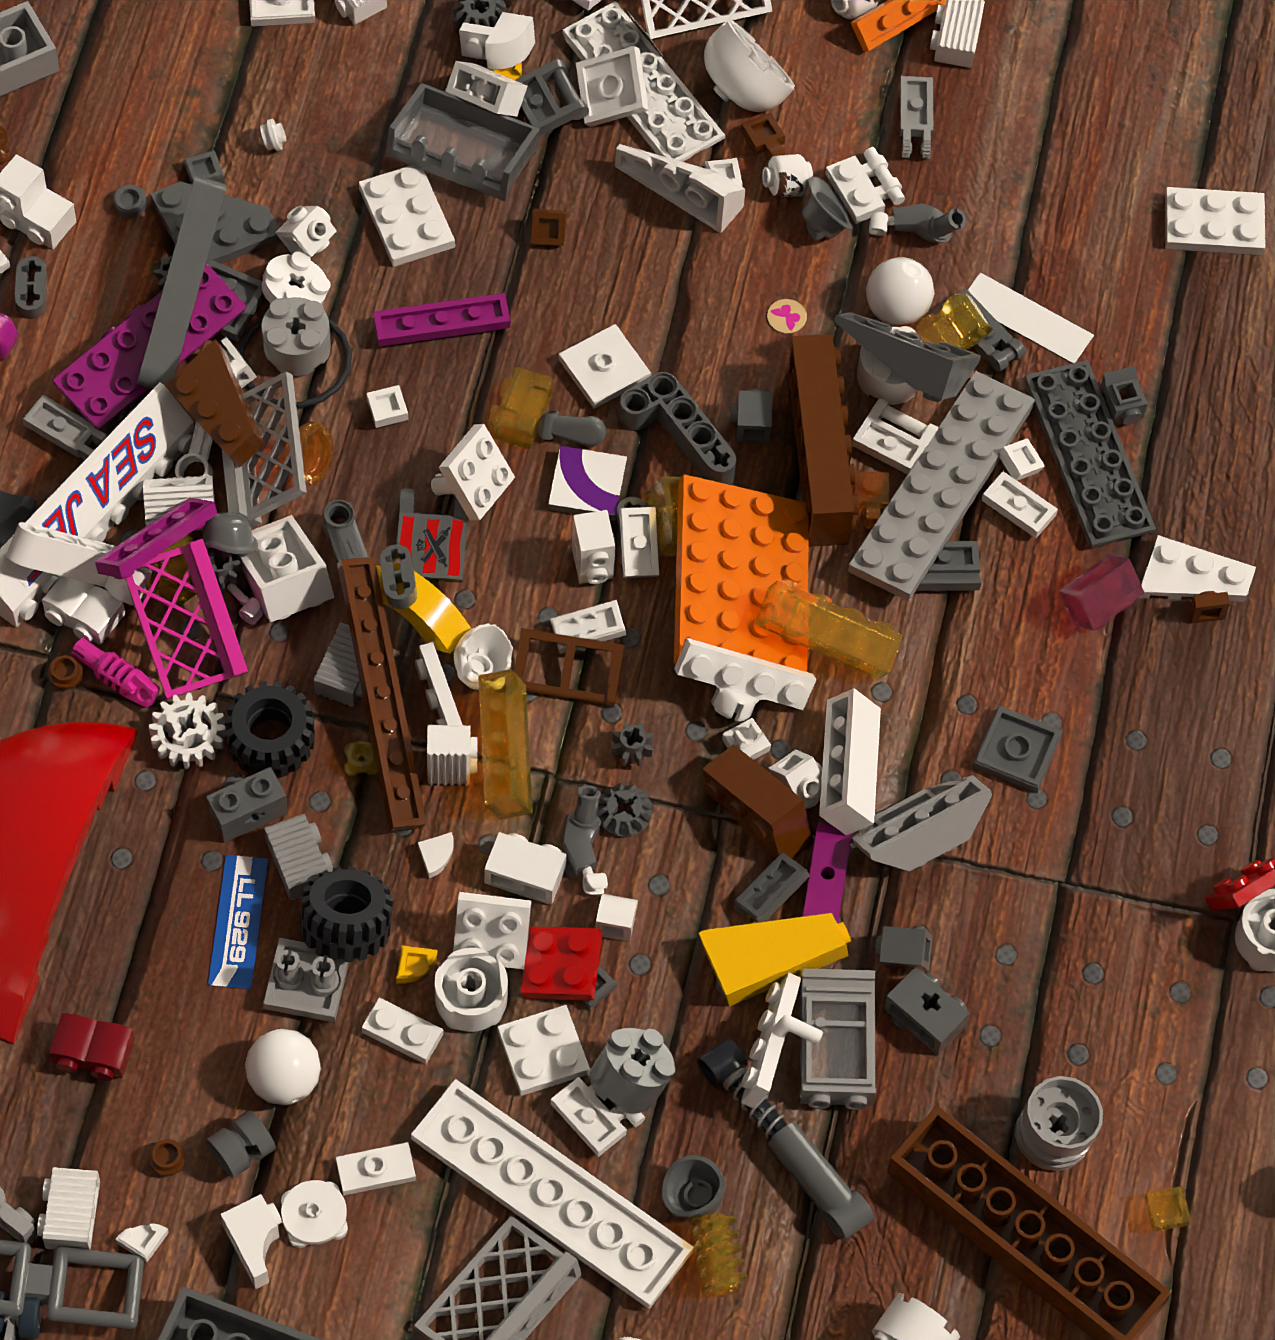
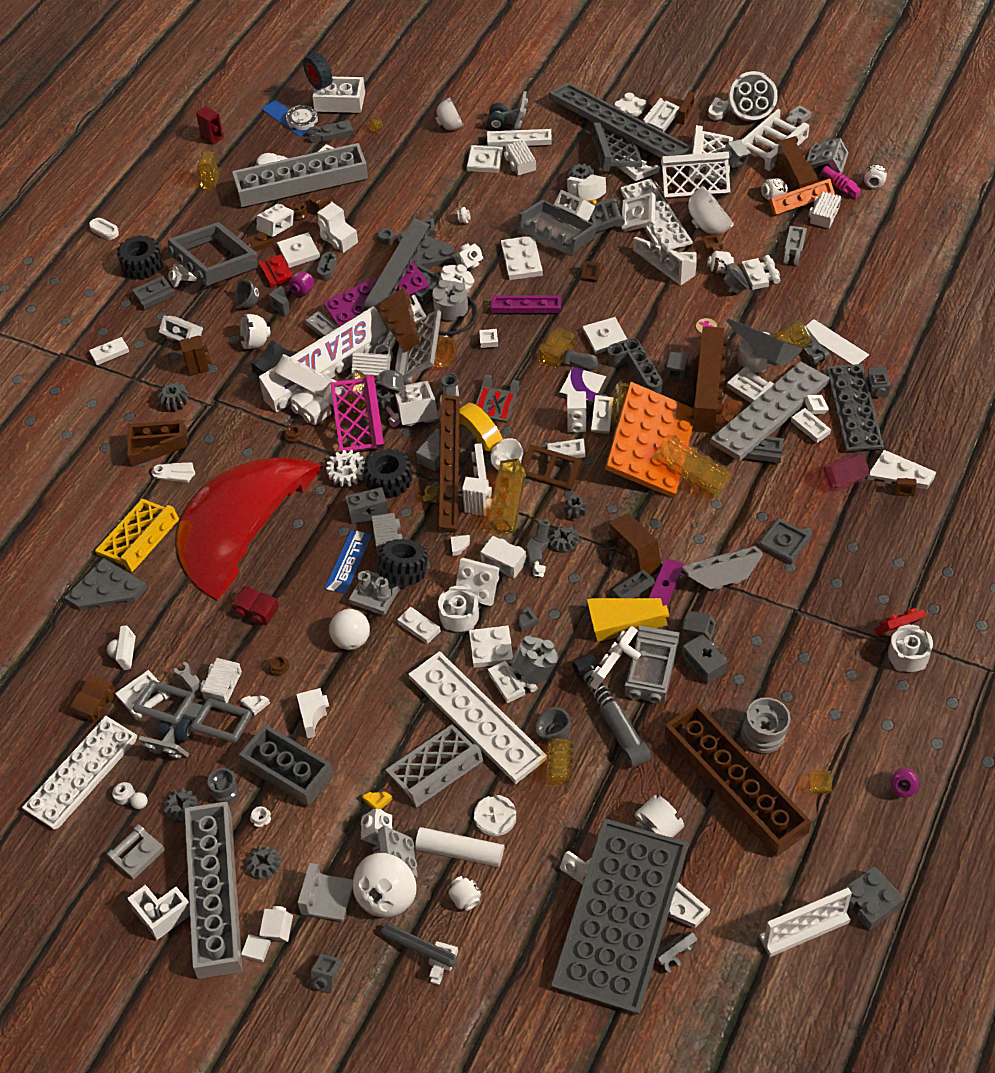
camera: 20 degrees right, 10 degrees down
(117, 673) = (318, 437): dark pink hinge -> none
(155, 538) = (370, 368): magenta plate -> none
(240, 1144) = (318, 663): dark grey wheel -> none
(314, 1213) = (348, 705): white piece -> none
(375, 1168) = (386, 689): white plate -> none
(392, 577) = (473, 407): dark grey beam -> none
(415, 963) = (432, 594): yellow tile -> none
(474, 473) = (523, 370): white plate -> none
(561, 963) = (511, 605): red plate -> none
(616, 917) = (545, 588): white brick -> none
(743, 679) = (640, 482): white plate -> none
(747, 738) = (639, 514): white tile -> none
(800, 775) = (663, 534): white brick -> none
(850, 762) = (689, 530): white brick -> none
(900, 291) = (767, 317): white piece -> none
(919, 219) = (786, 290): dark grey arm -> none
(1214, 221) = (945, 310): white plate -> none

